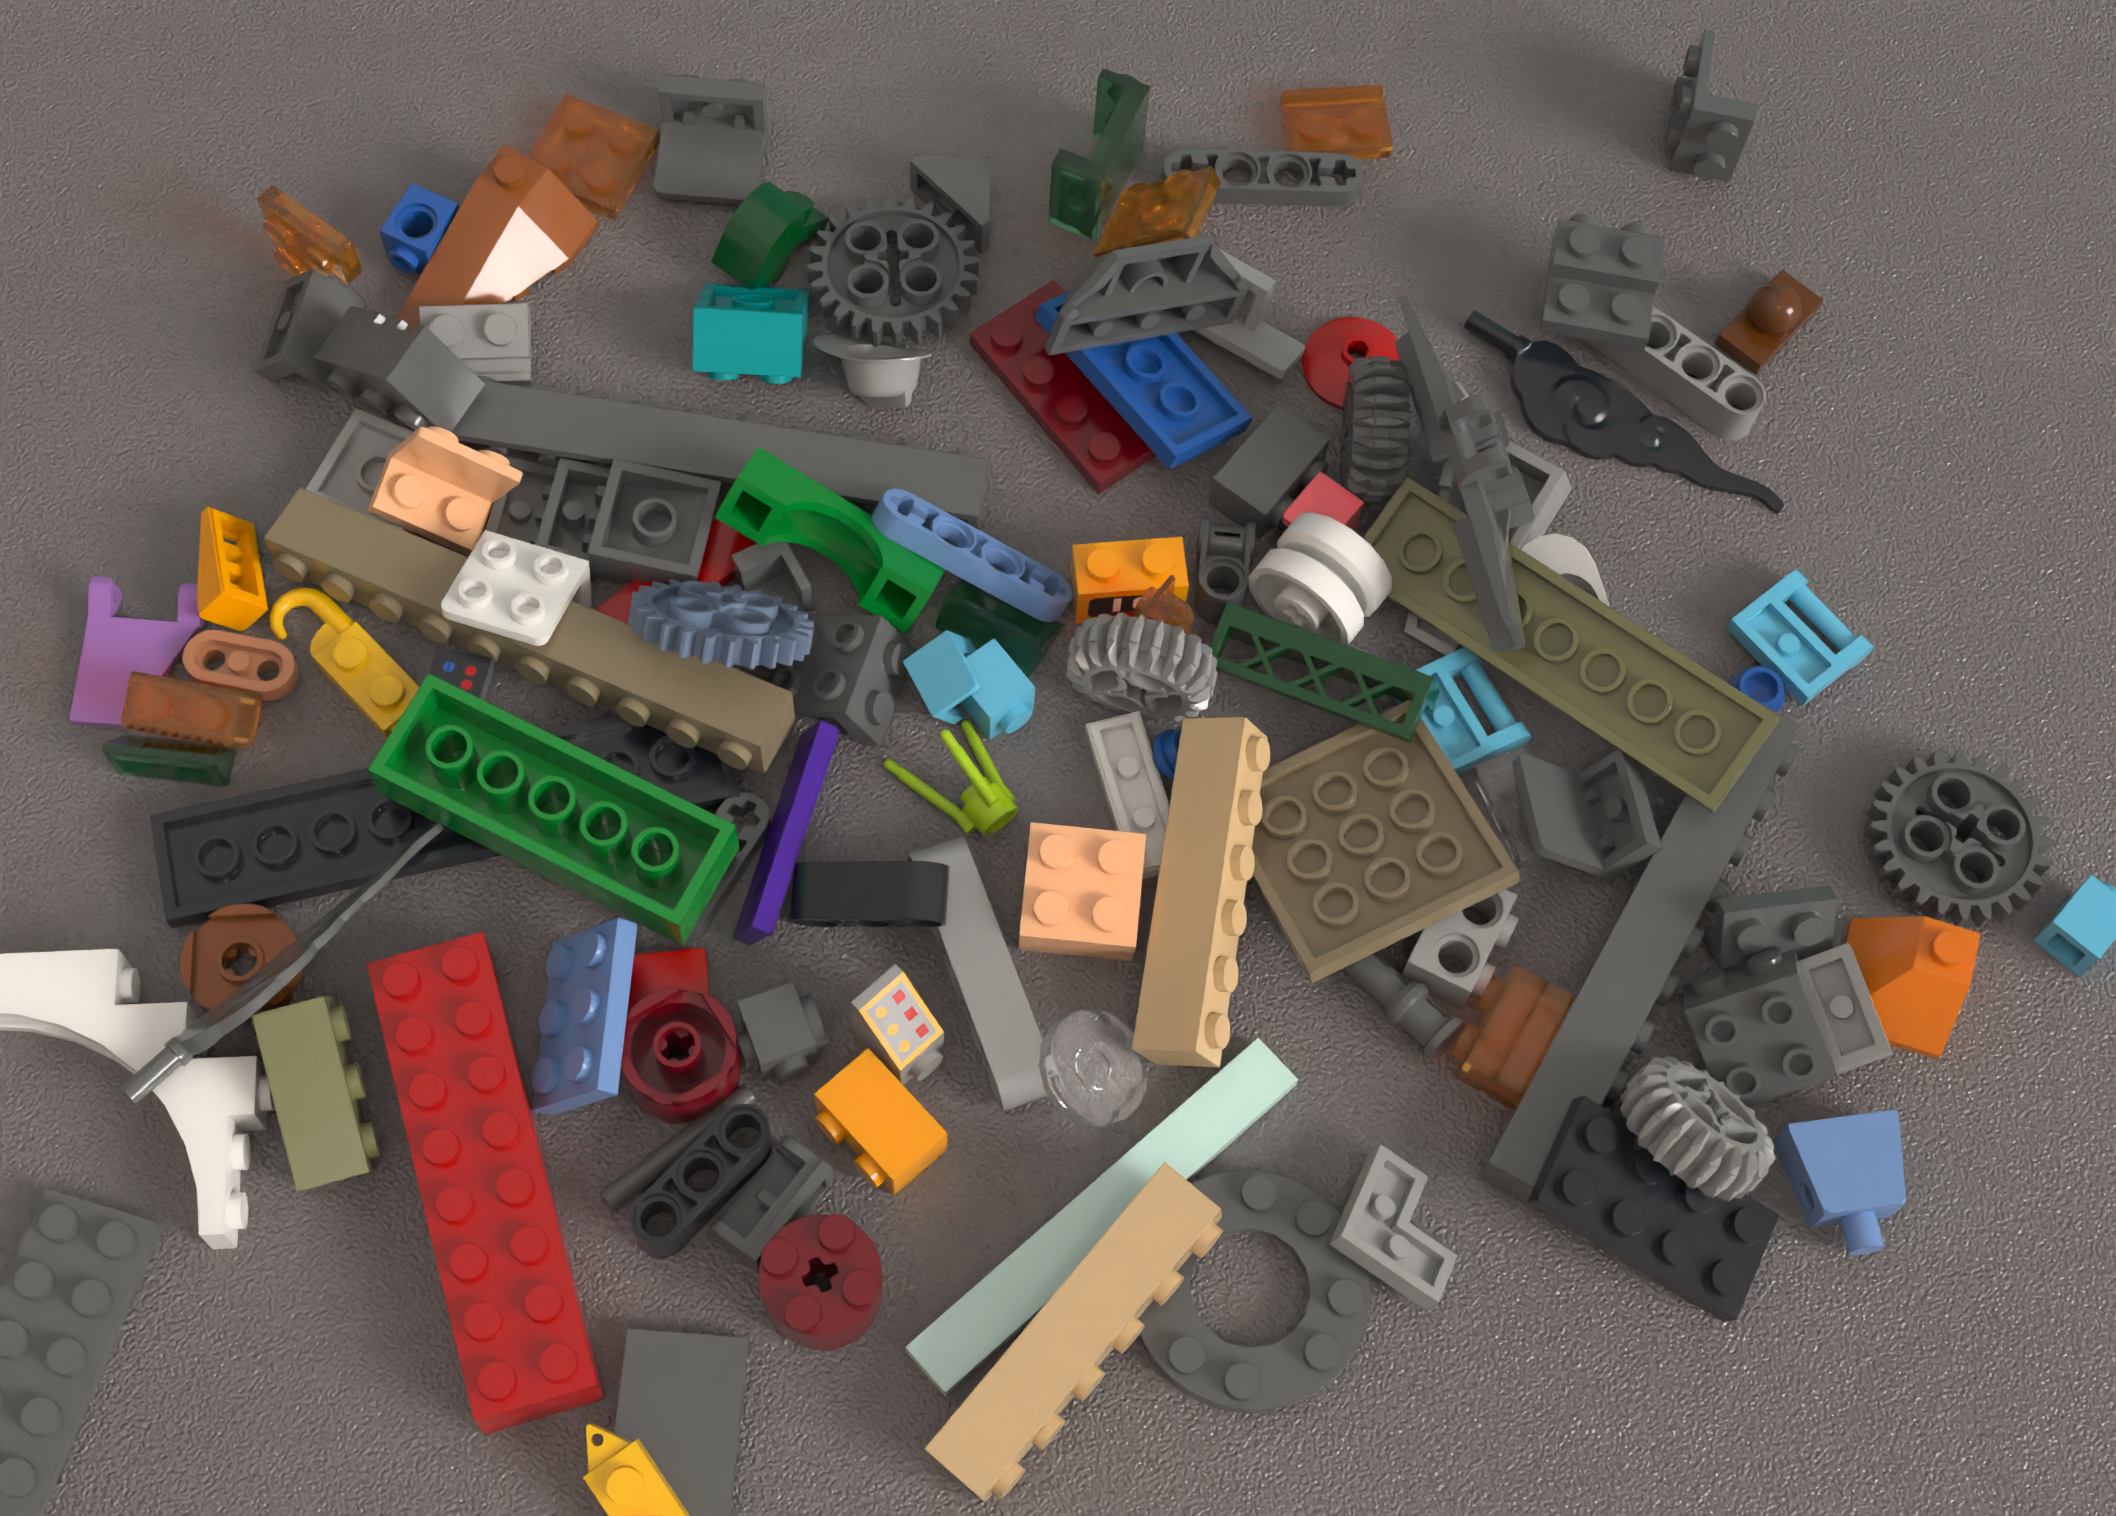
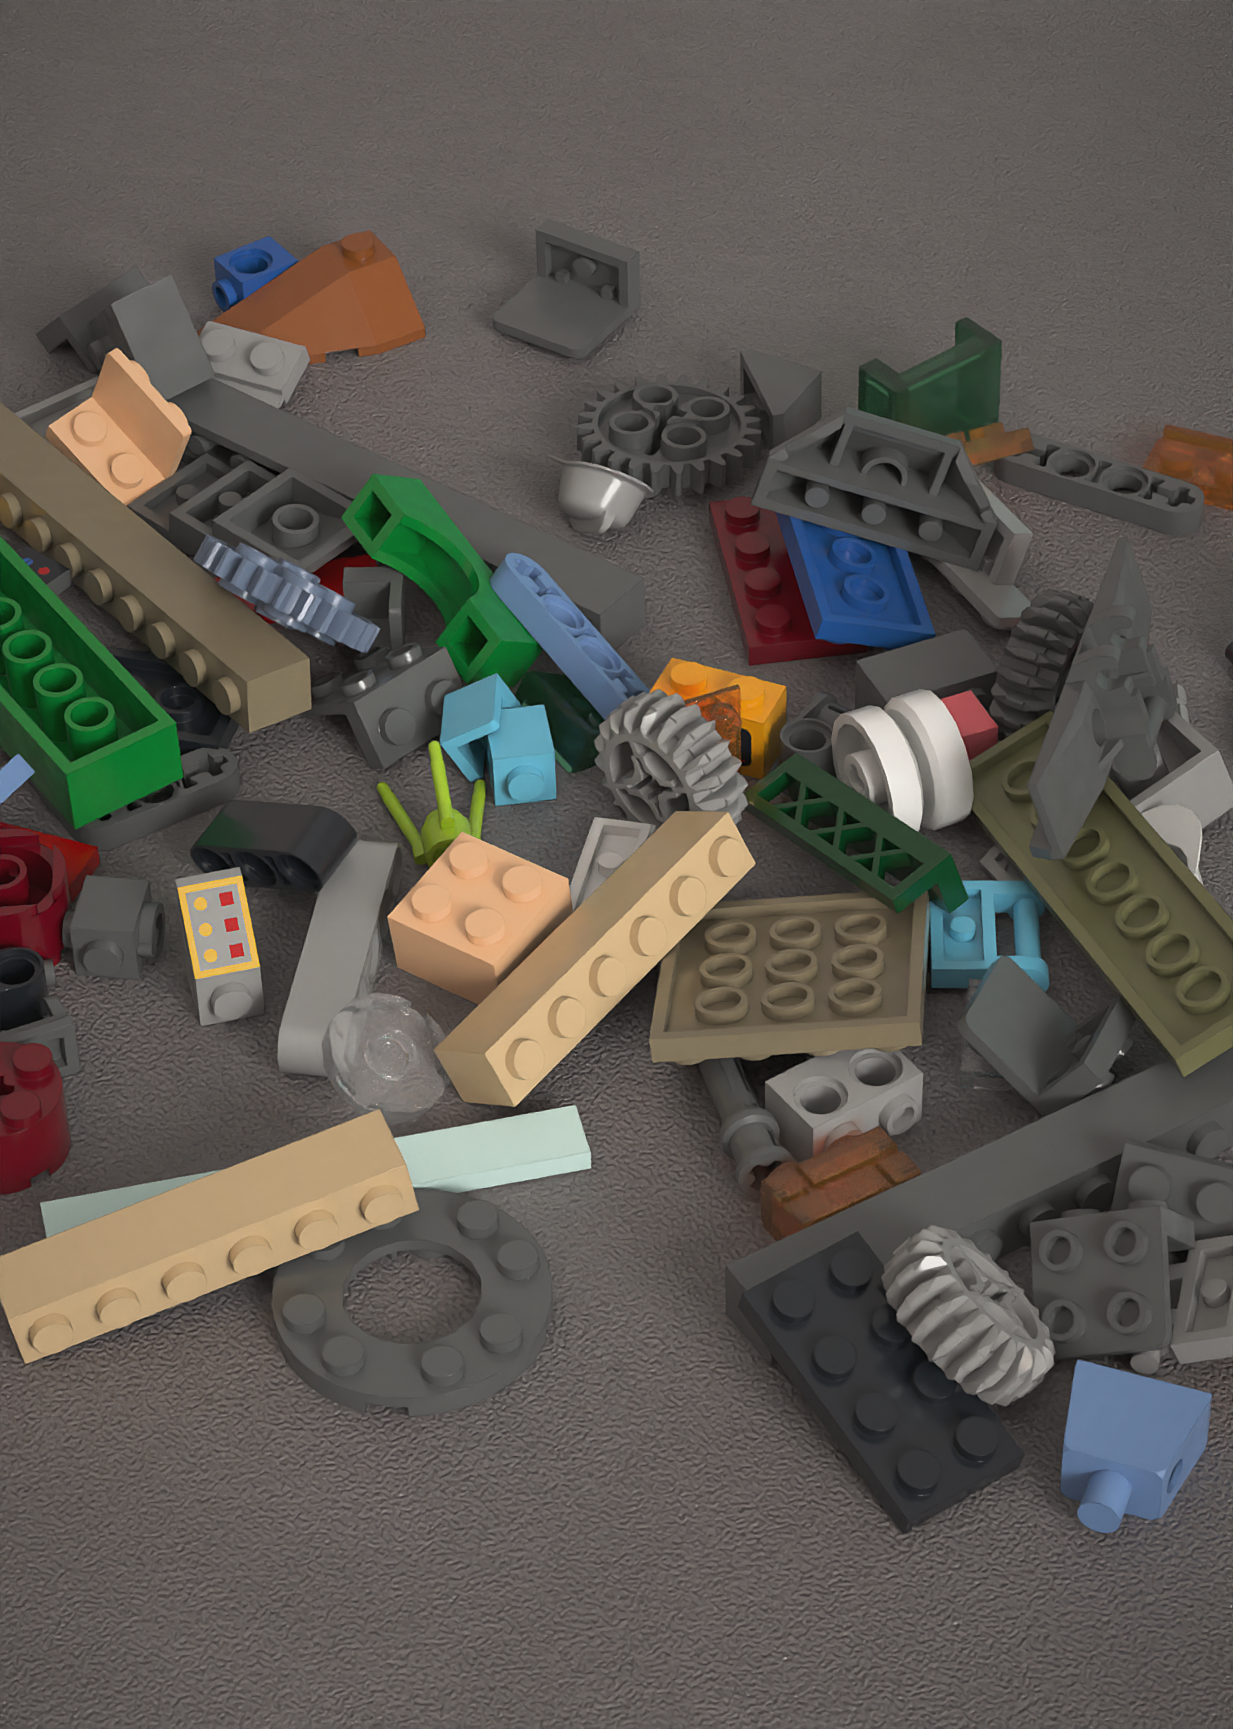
camera: 35 degrees right, 25 degrees down
(305, 239) = (142, 233): clear orange plate -> none
(516, 588) = (127, 514): white bracket -> none
(595, 153) = (459, 282): clear orange plate -> none
(750, 332) = (495, 433): teal slope -> none
(764, 234) = (560, 363): dark green brick -> none
(786, 833) = (248, 781): dark purple tile -> none
(879, 1123) = (152, 1027): light orange brick -> none
(1379, 1232) = (579, 1292): light grey plate -> none

